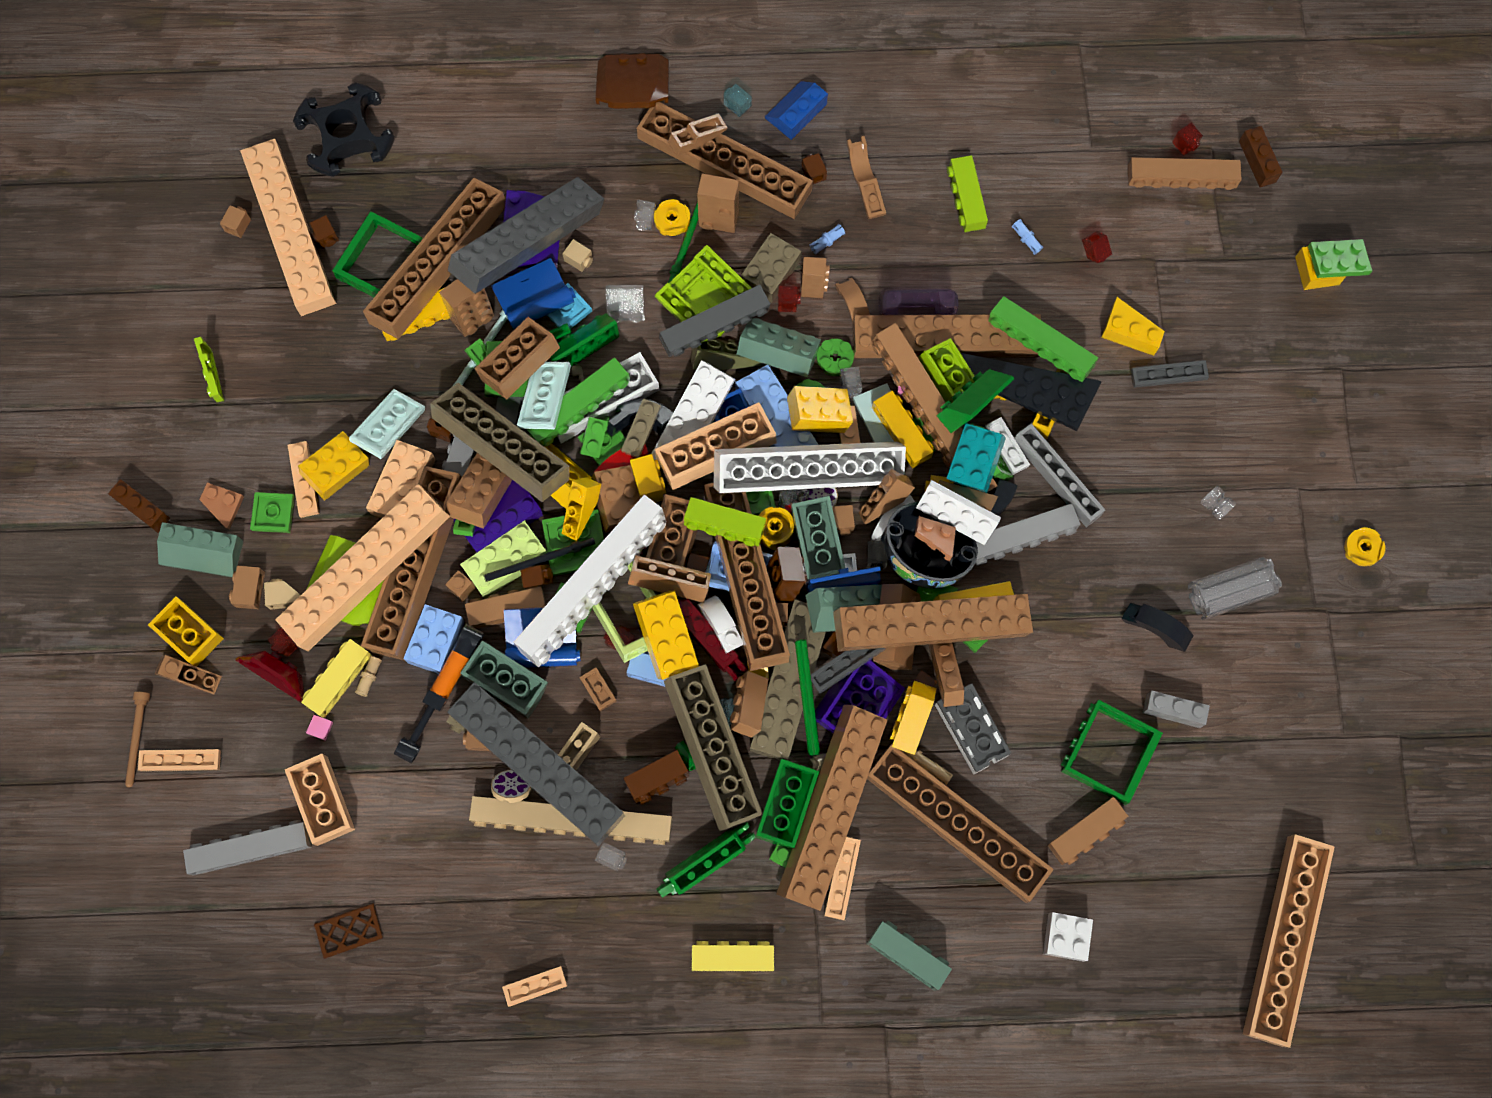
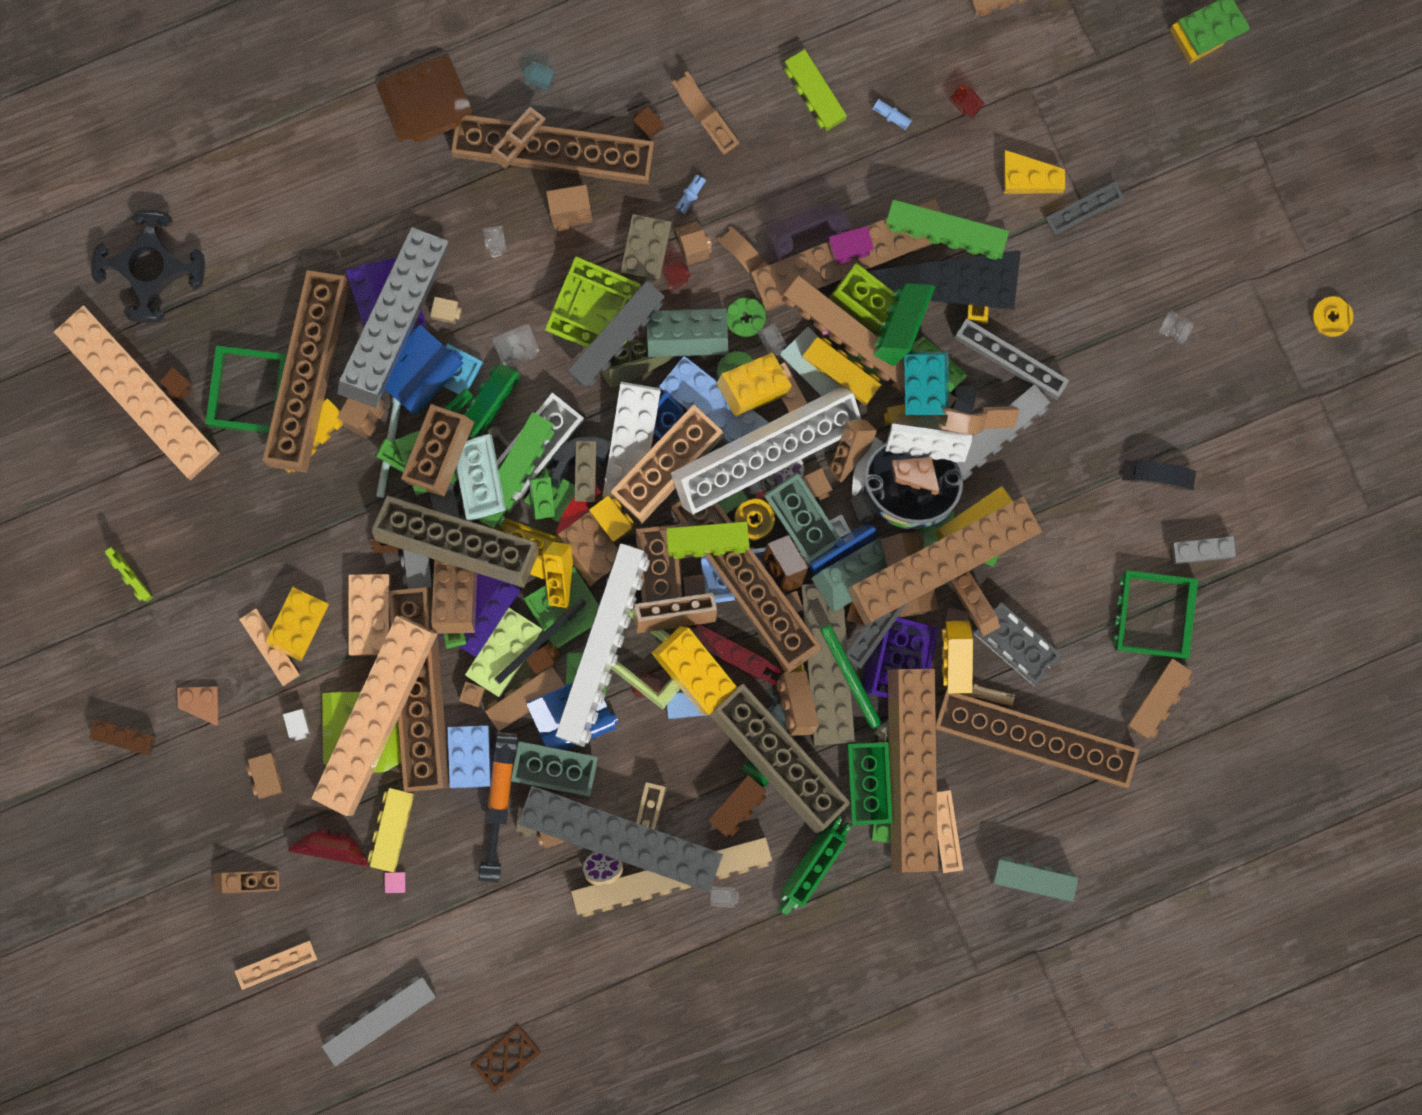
camera: 20 degrees left, 10 degrees up
(141, 700) = (212, 923): medium nougat piece -> none
(185, 631) = (227, 842): yellow brick -> none
(198, 549) = (201, 758): sand green slope -> none
(235, 221) = (80, 407): medium nougat brick -> none
(272, 512) = (255, 692): bright green plate -> none
(279, 594) = (302, 770): tan slope -> none
(282, 643) = (325, 817): clear red brick -> none
(295, 553) = (297, 724): none -> white brick
(319, 799) = (428, 950): light nougat brick -> none
(368, 676) = (420, 816): tan pin -> none
(387, 423) = (331, 561): light aqua tile -> none
(534, 986) = (701, 1041): light nougat plate -> none
(598, 689) = (646, 743): medium nougat plate -> none
(670, 227) = (512, 231): yellow plate -> none
(676, 268) = (550, 286): green bar -> none
(721, 622) = (739, 635): white arch -> none
(732, 957) = (873, 944): light yellow brick -> none
(798, 108) = (604, 60): blue slope -> none
(951, 321) = (850, 245): none -> magenta brick
(1011, 451) = (946, 342): white plate -> none
(1011, 510) = (975, 423): none -> medium nougat piece
(1068, 936) = (1174, 805): white brick -> none
(1234, 588) = (1219, 409): clear brick -> none
(1288, 941) = (1378, 729): light nougat brick -> none

